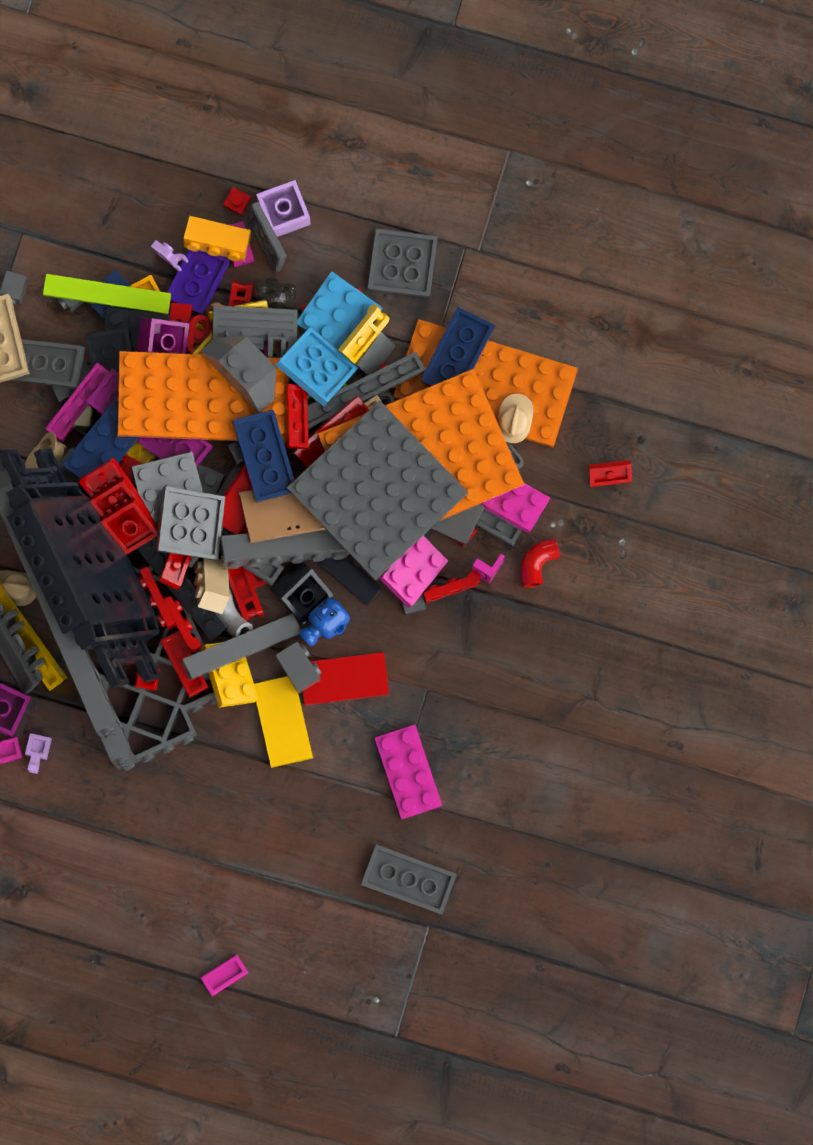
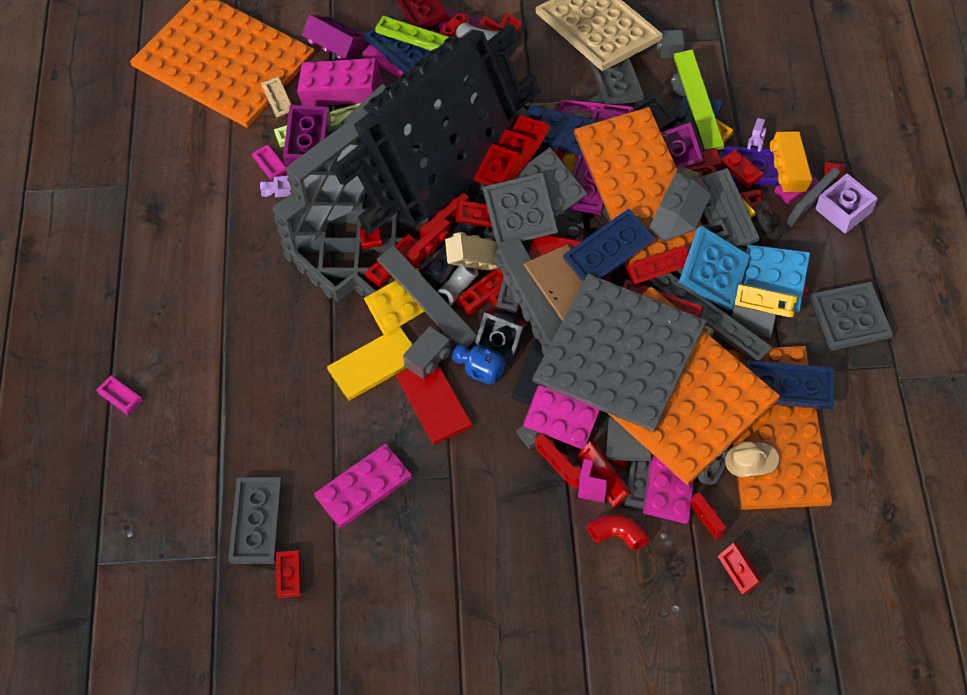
camera: 75 degrees right, 20 degrees down
(203, 288) = (741, 168): none -> red plate
(472, 865) = (288, 574): none -> red plate
(485, 551) = (602, 469): none -> red plate
(553, 478) = (708, 516): none -> red plate

